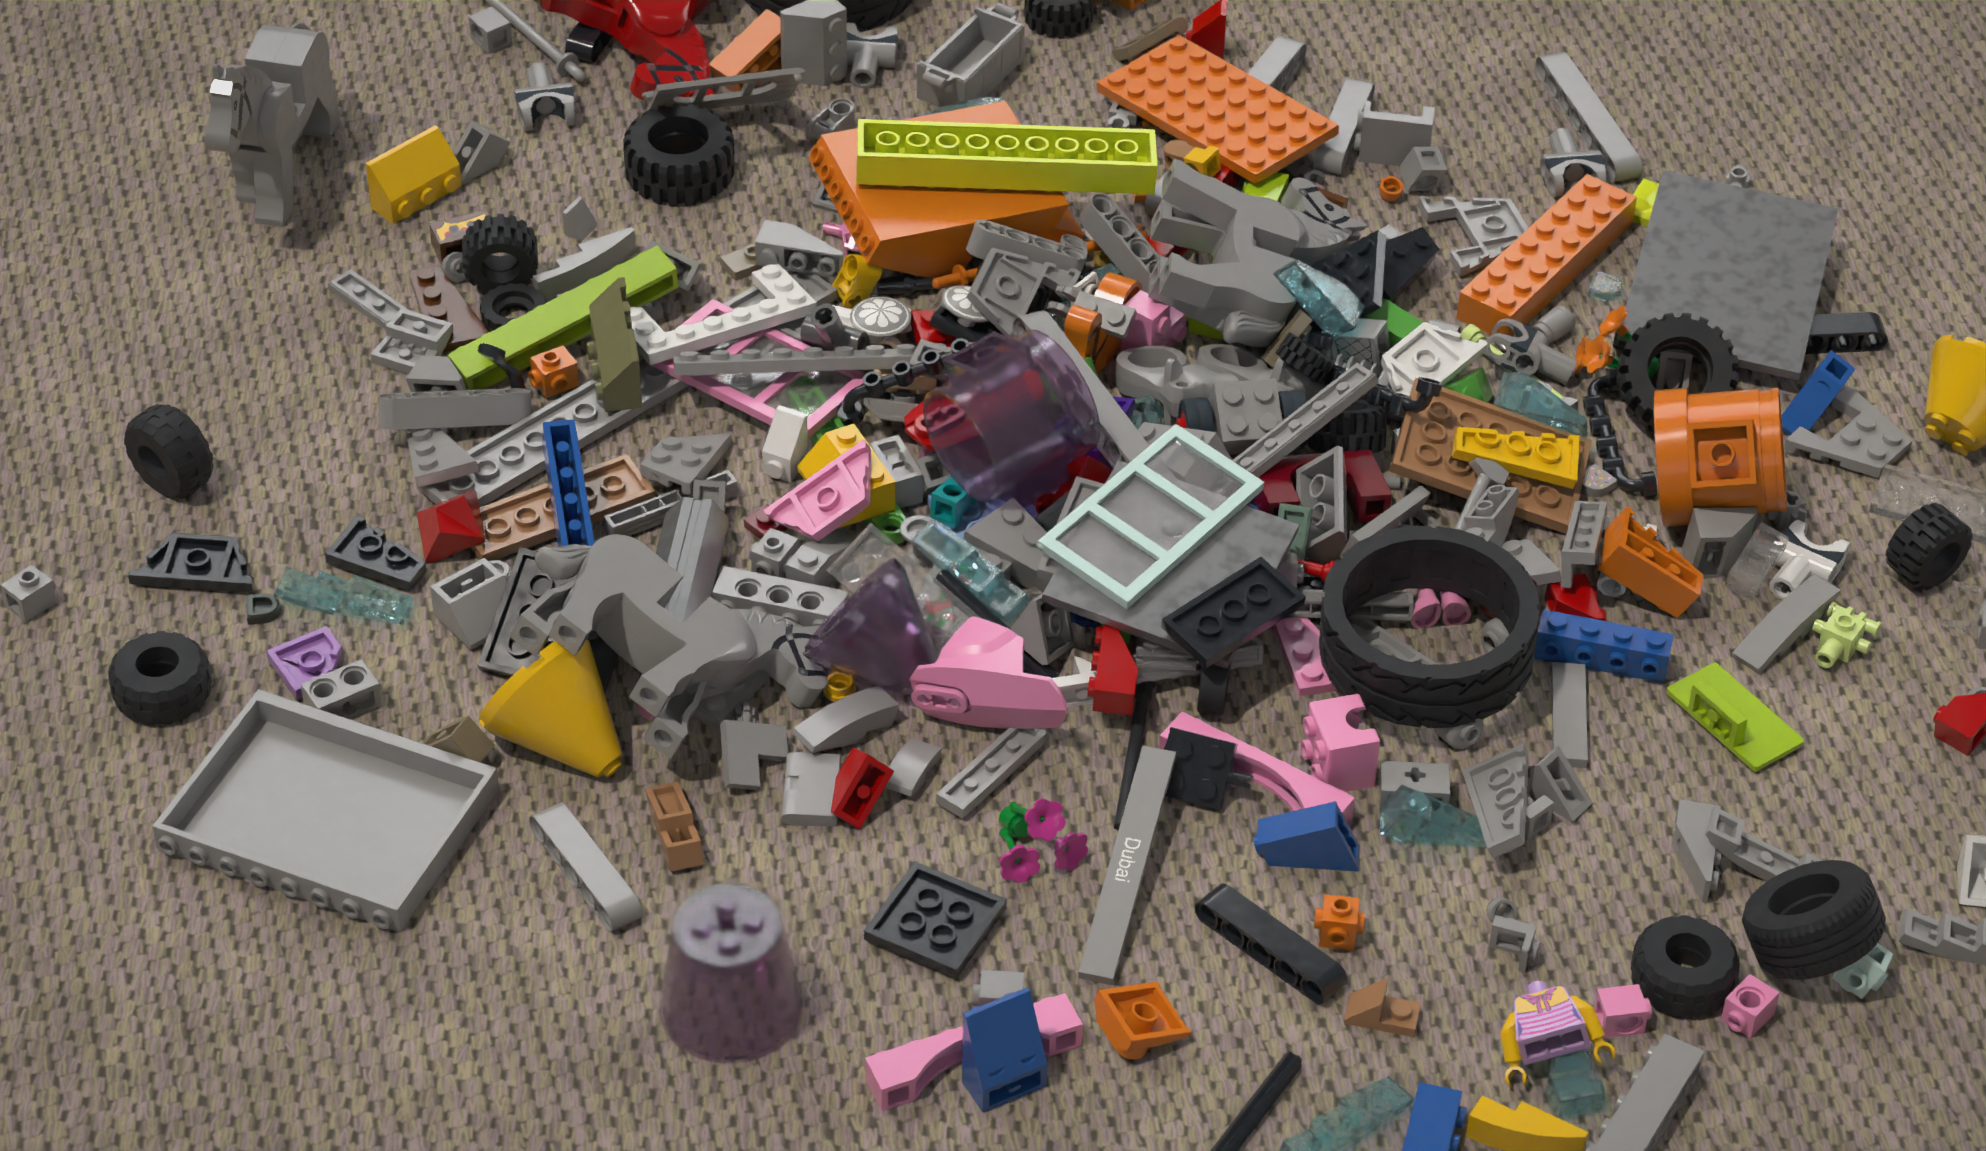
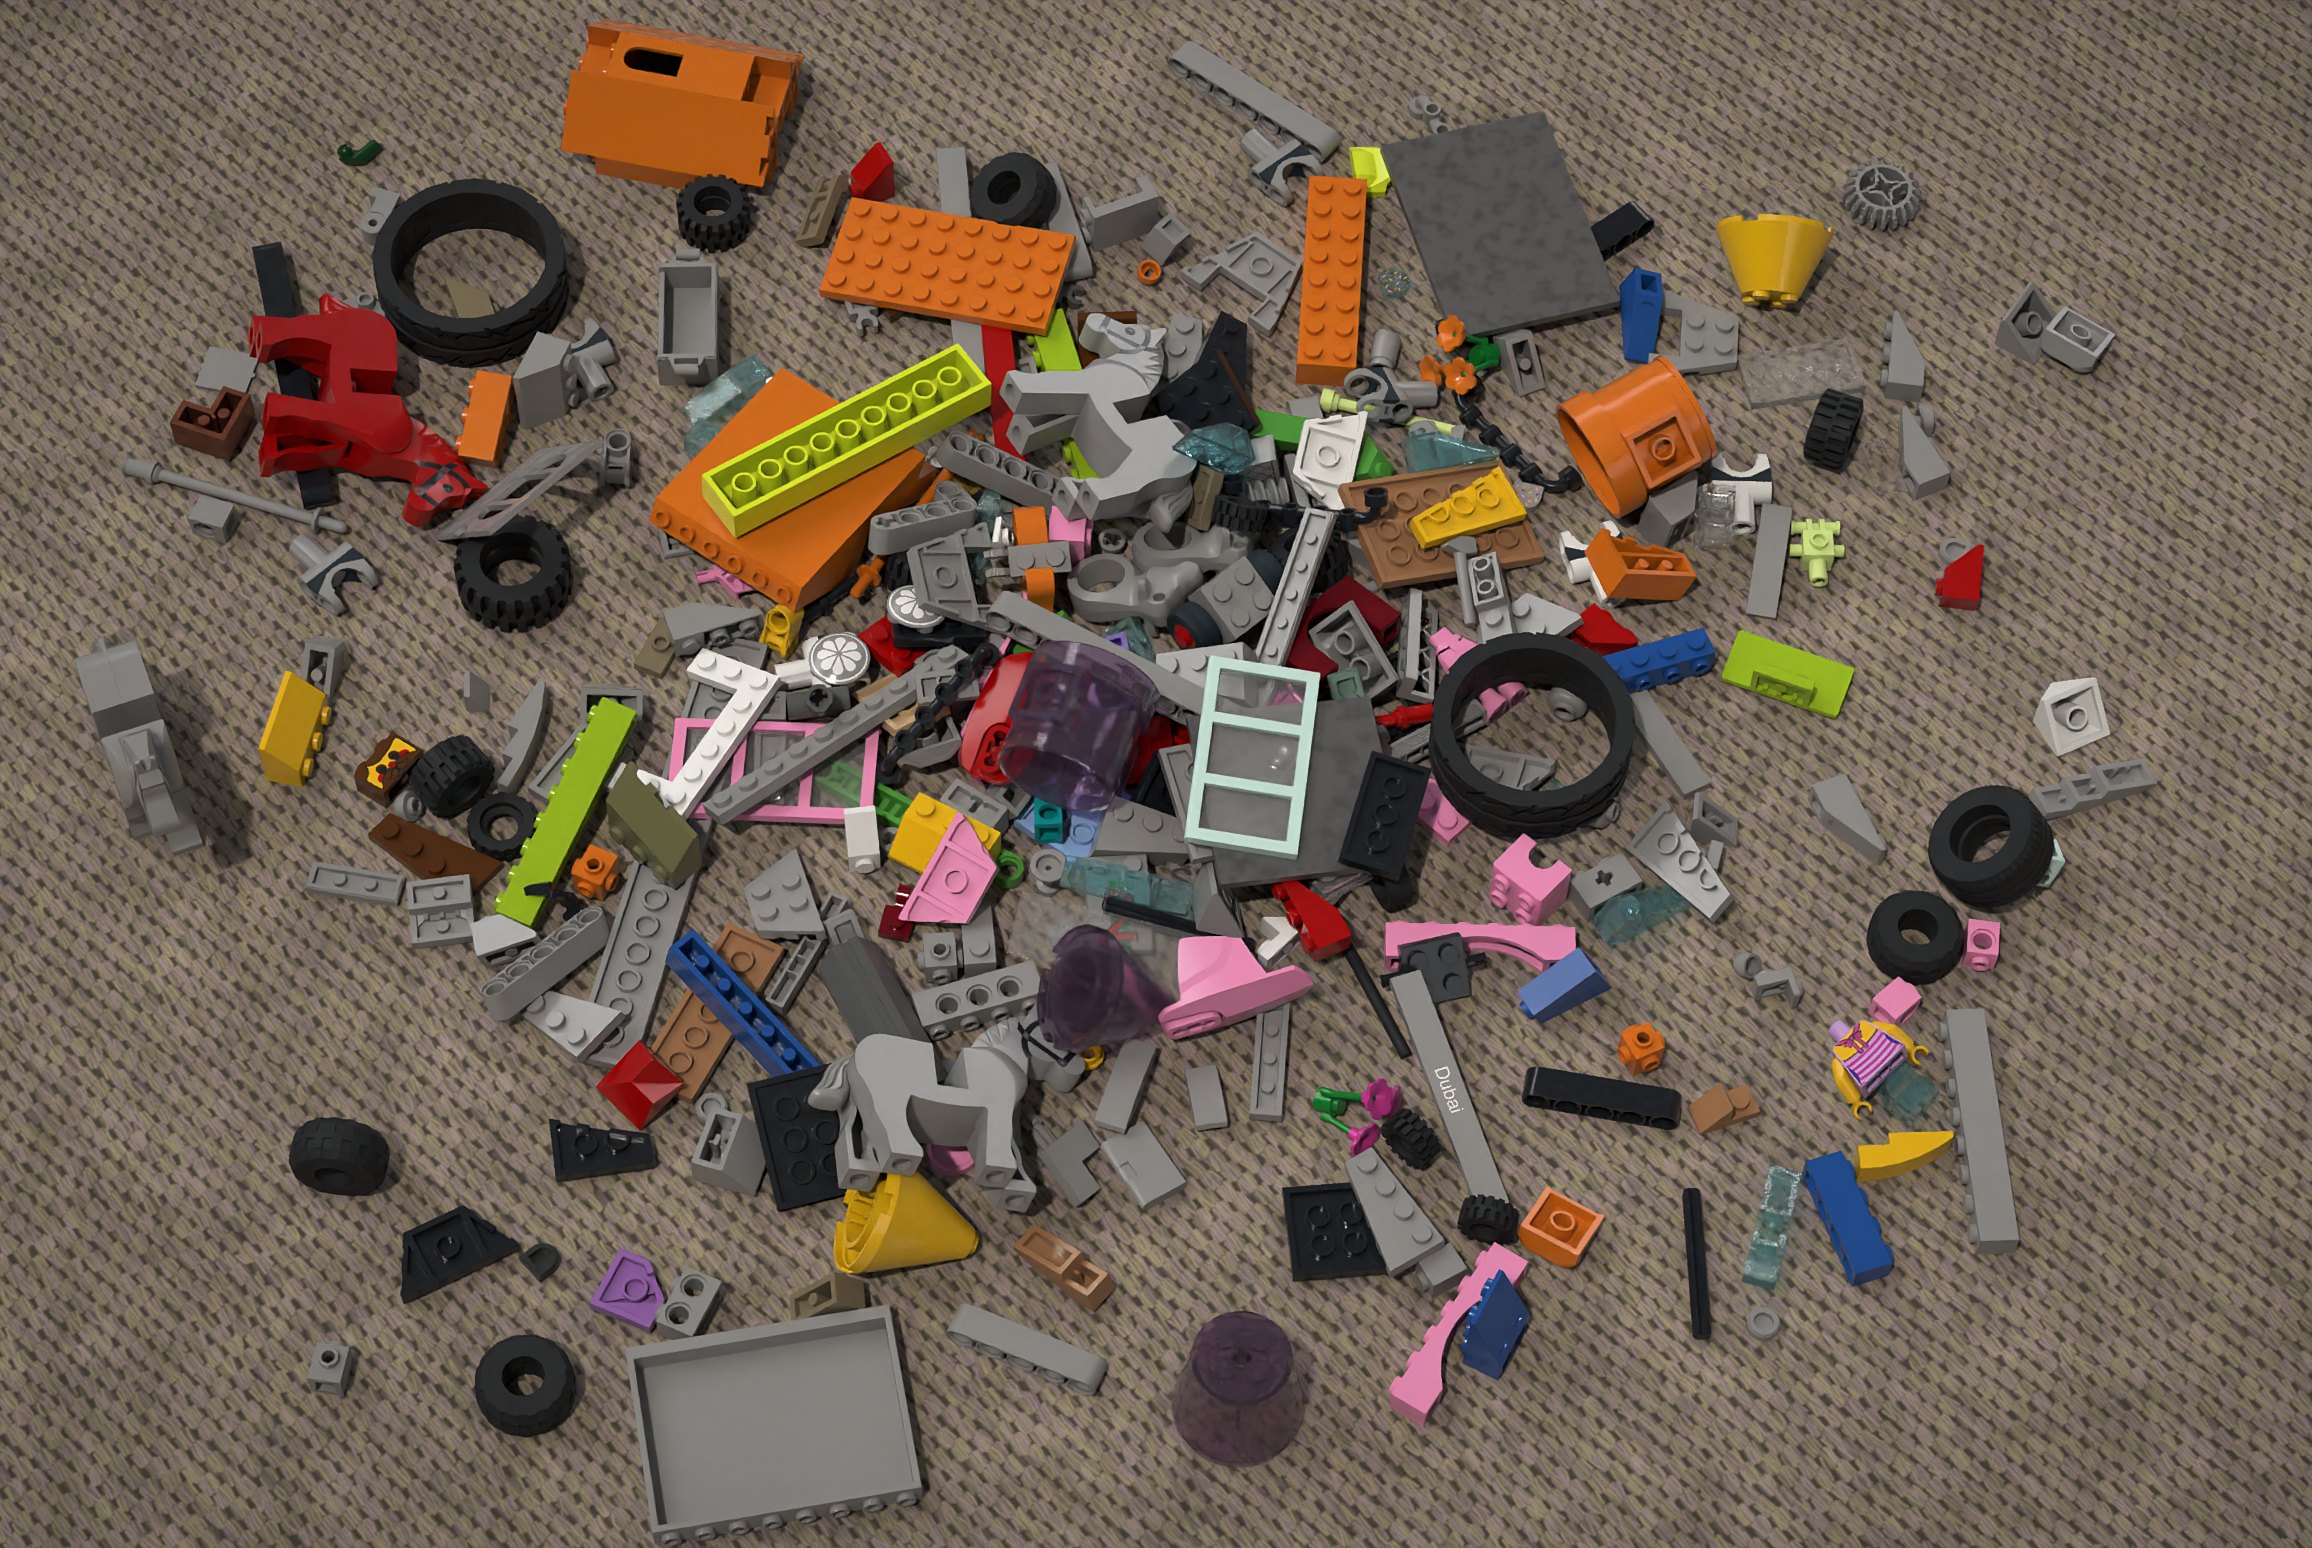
camera: 35 degrees left, 15 degrees up
(343, 598) = (607, 1209): clear light blue slope -> none
(859, 787) = (1186, 1143): red slope -> none
(989, 925) = (1395, 1220): none -> light grey wing
(1060, 879) = (1410, 1138): none -> black tyre
(1075, 973) = (1488, 1220): none -> black tyre
(1190, 345) = (1112, 535): none -> light grey bush
(1201, 160) = (979, 342): yellow leg -> none
(1317, 79) = (1005, 177): none -> black tyre
(1582, 538) = (1575, 572): light grey fence -> none
(1669, 334) = (1500, 360): black tyre -> none
(1748, 851) = (1904, 800): light grey slope -> none

